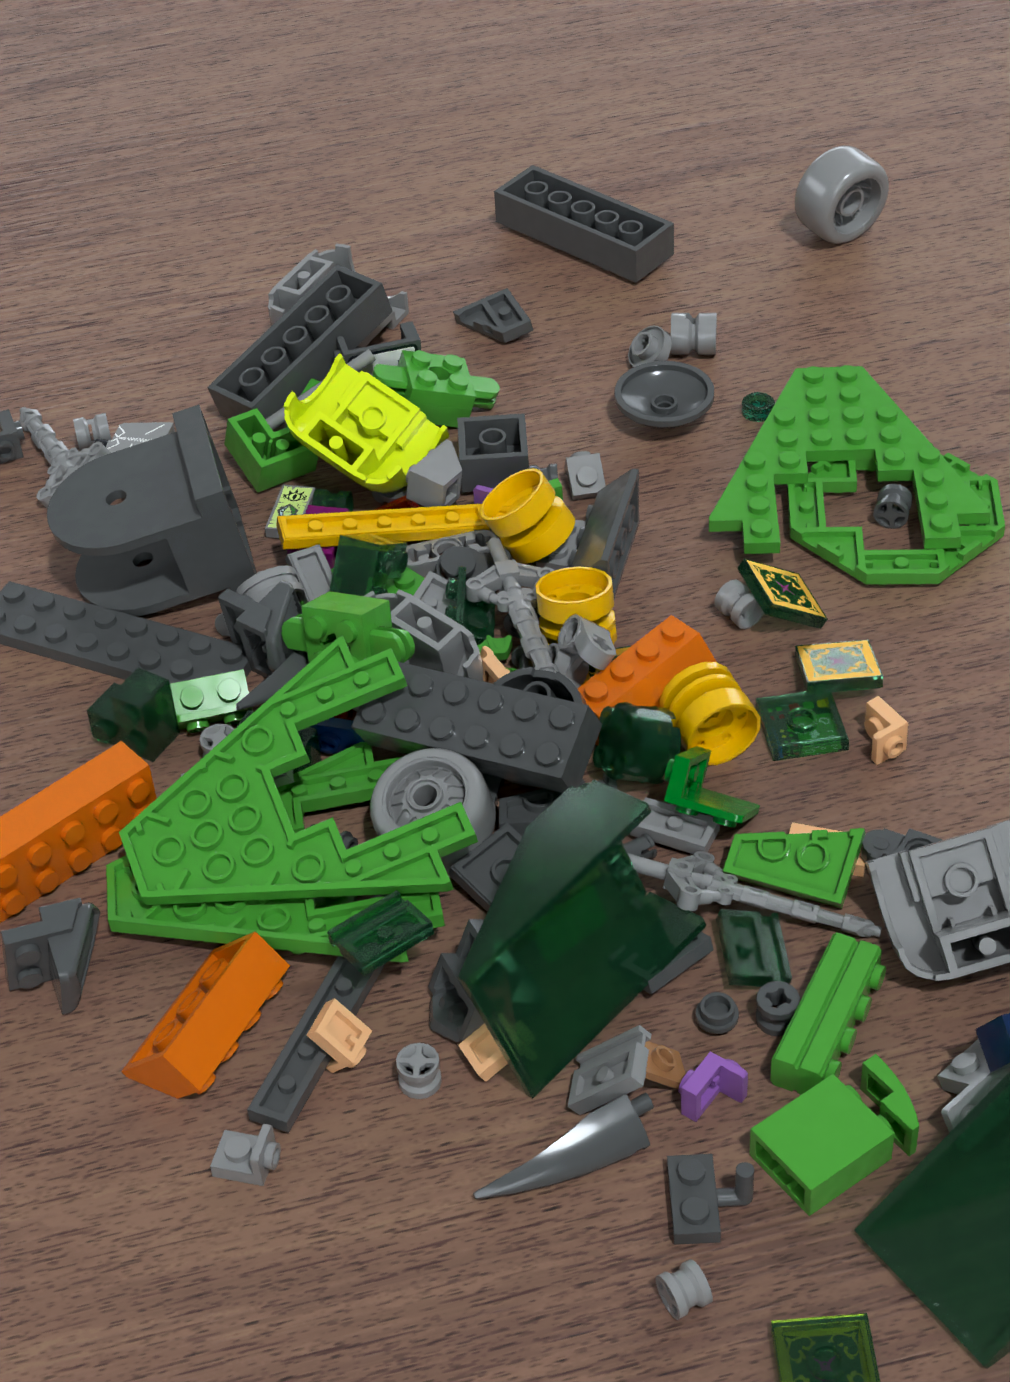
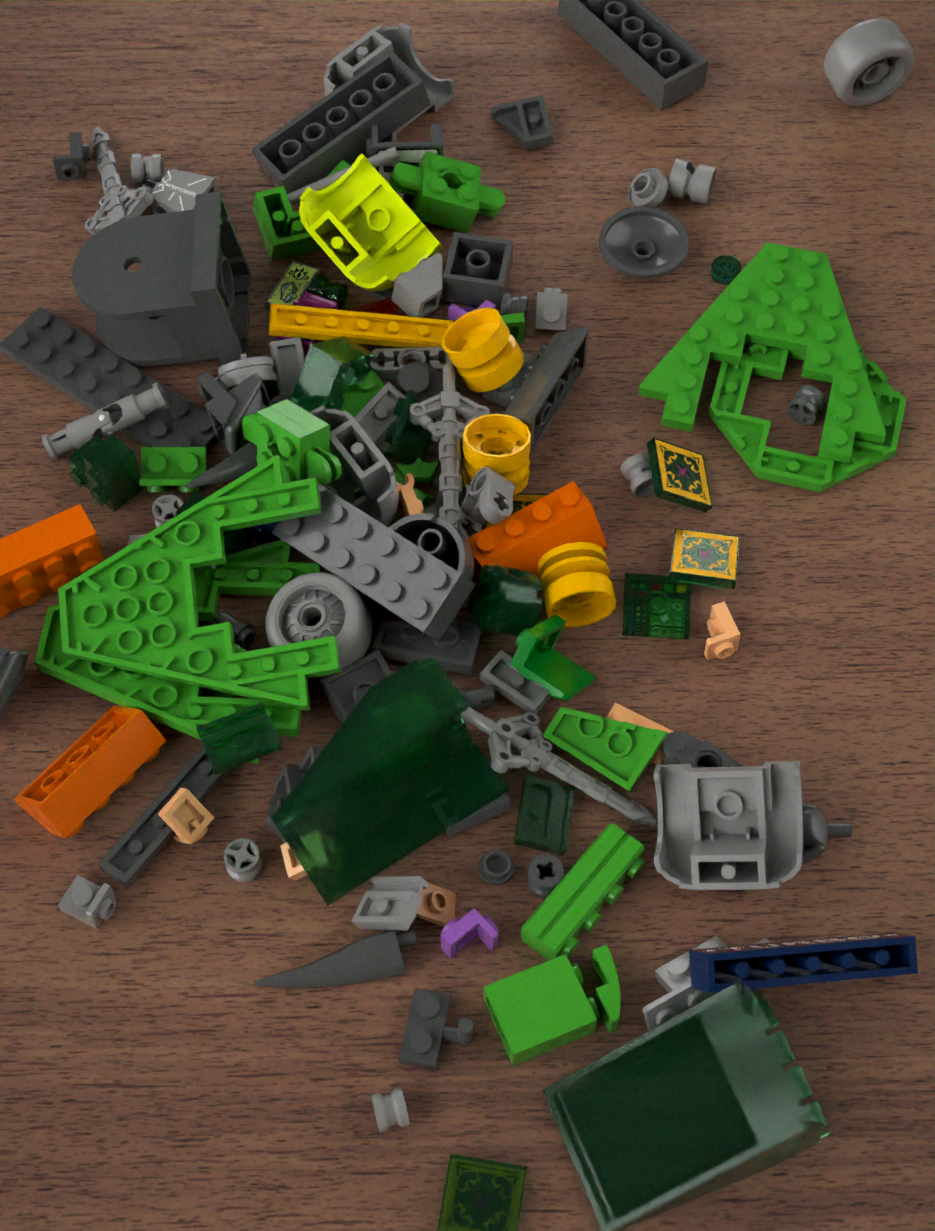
camera: 10 degrees right, 15 degrees up
(149, 649) = (102, 424): none -> light grey piece

